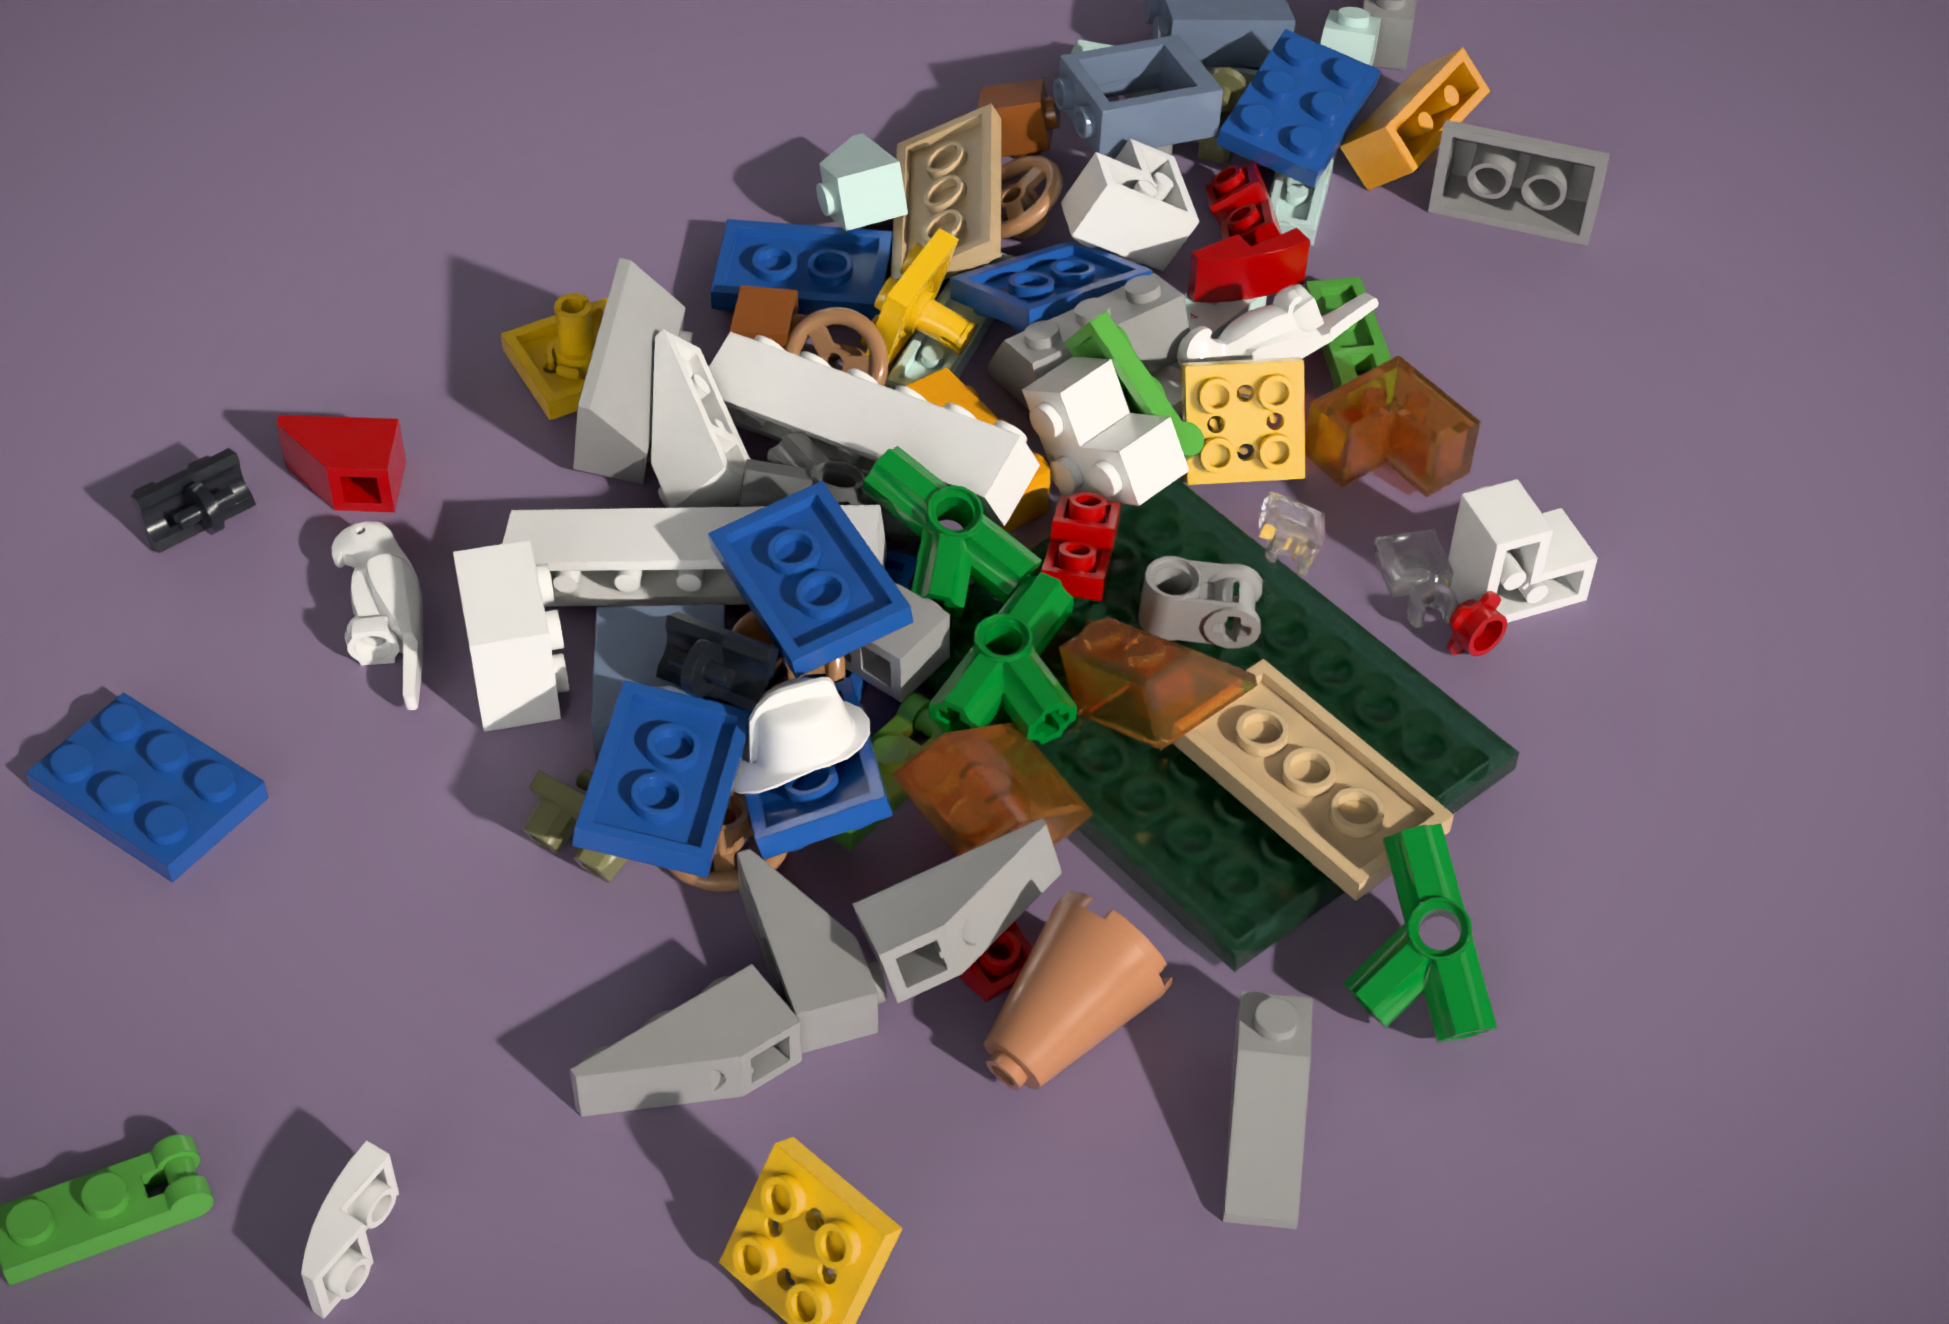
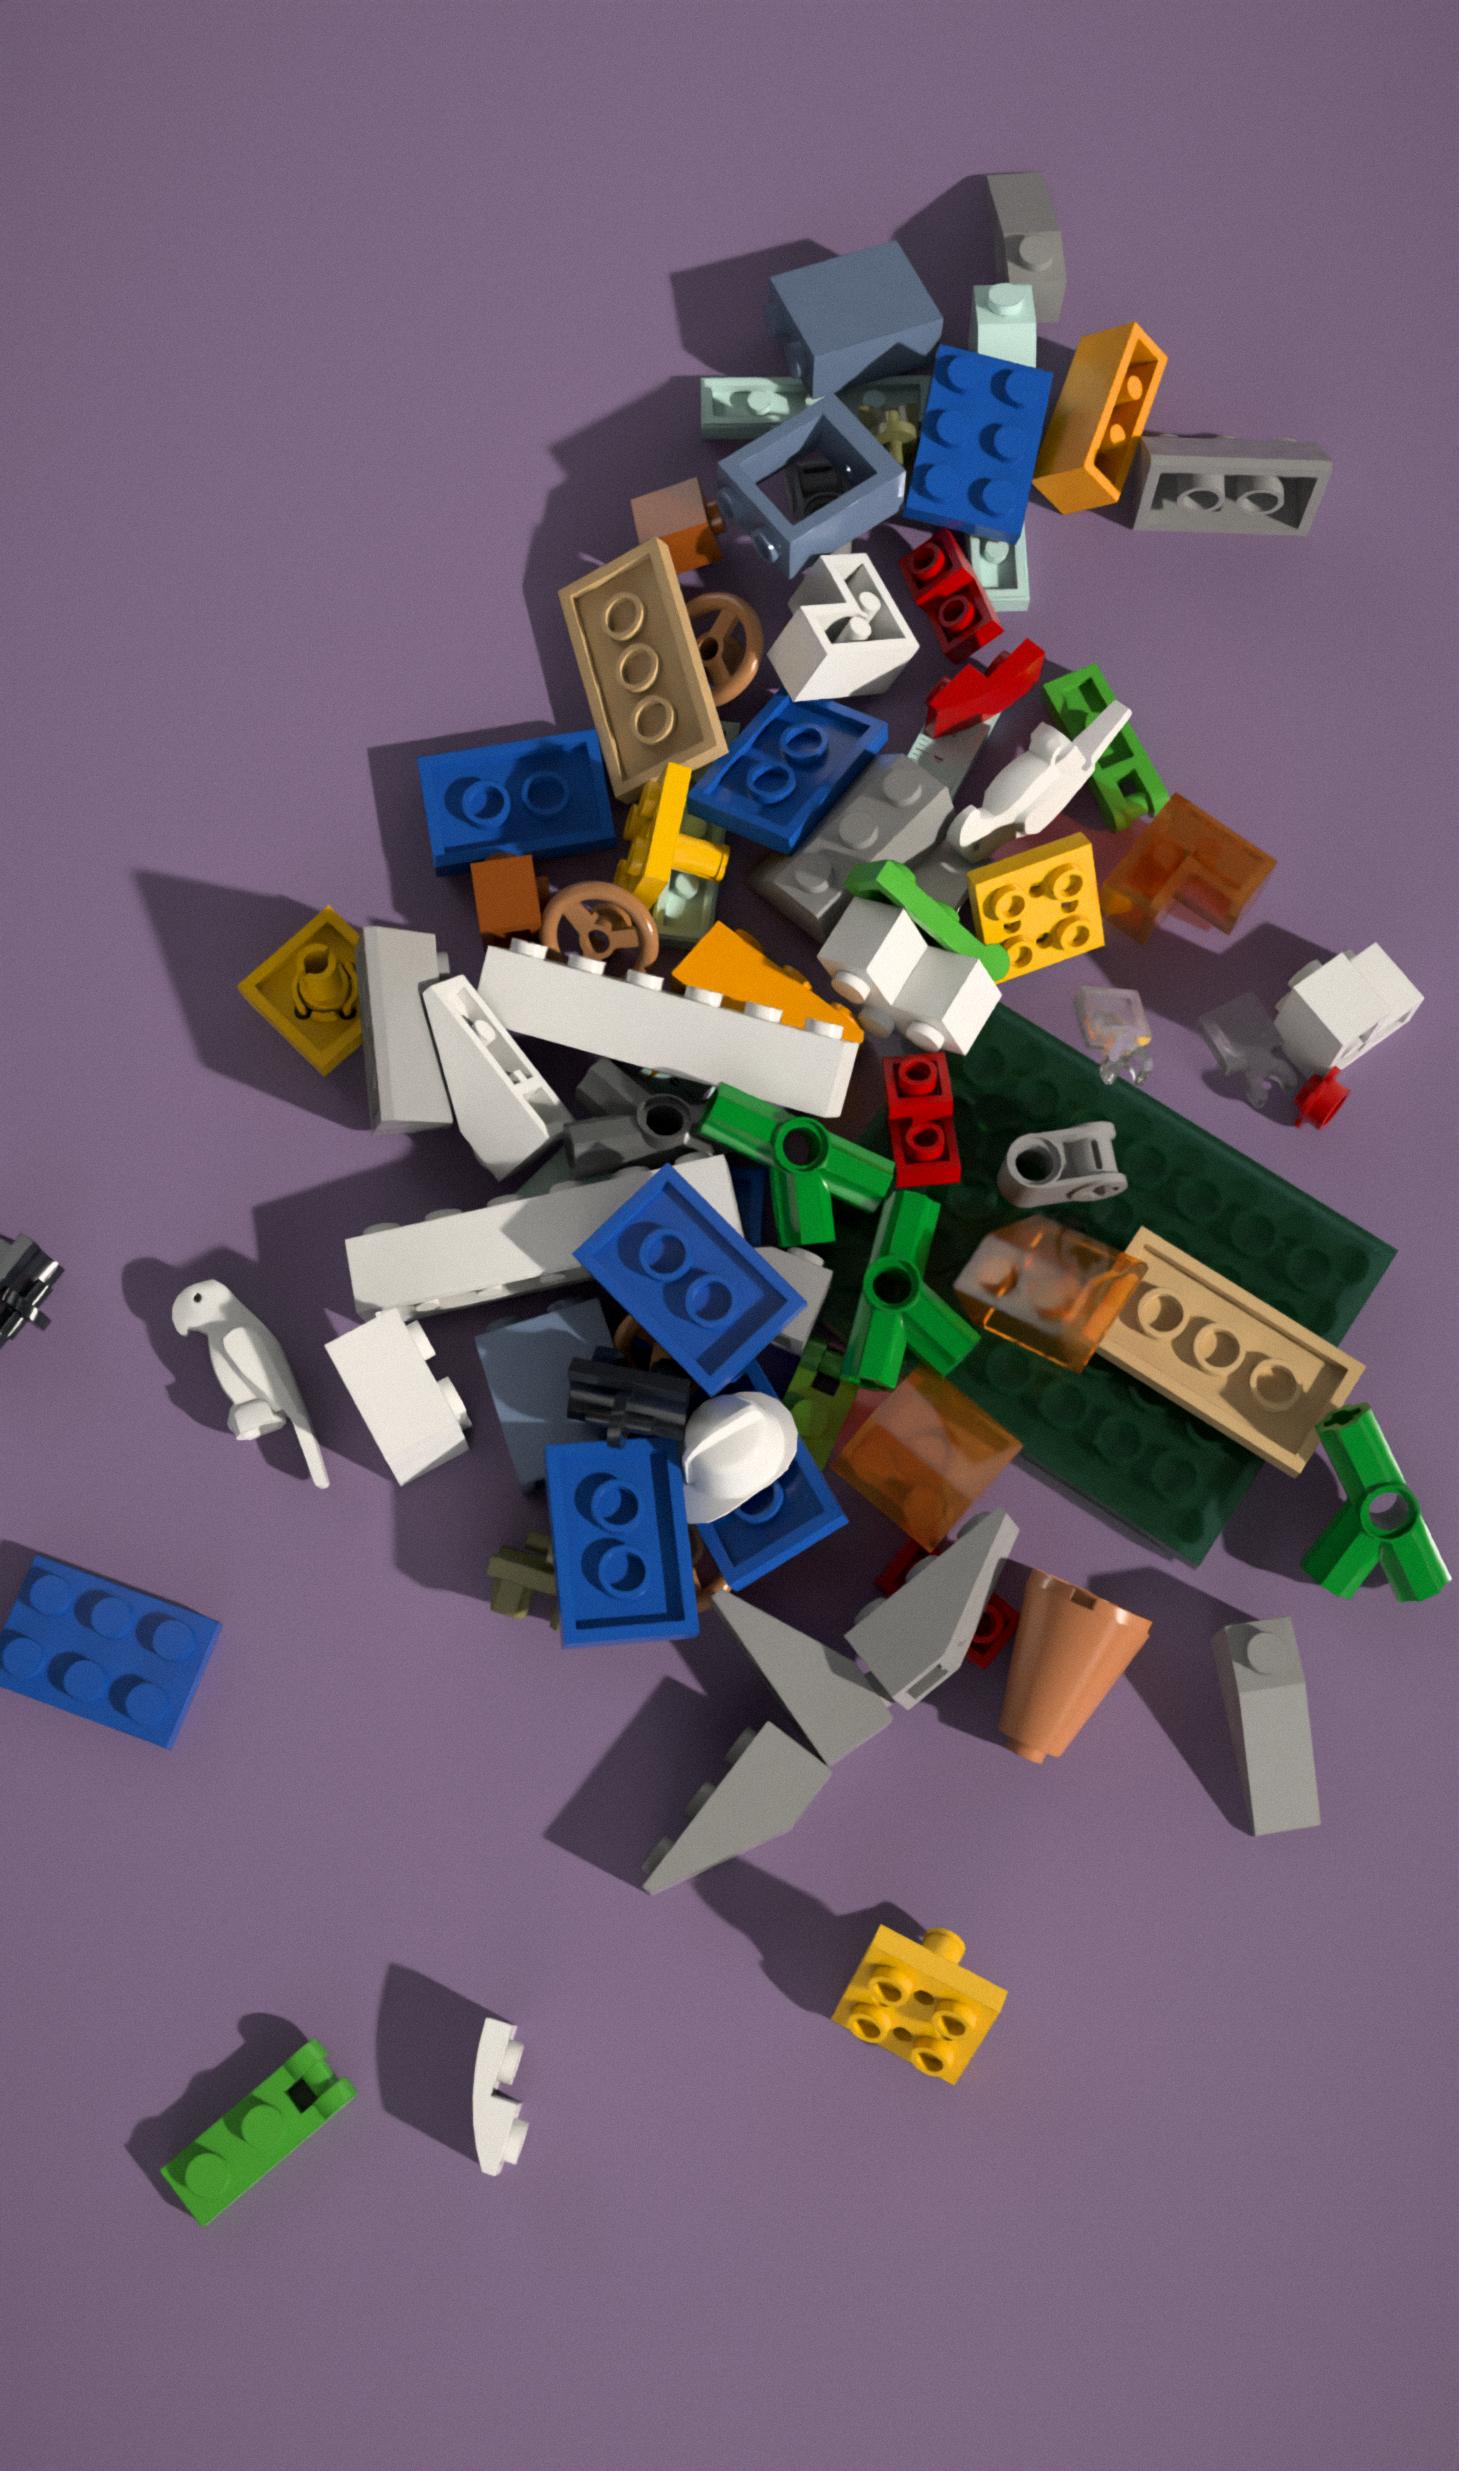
camera: 15 degrees left, 25 degrees up
(346, 459) = (142, 1199): red slope -> none
(861, 184) = (546, 678): light aqua slope -> none

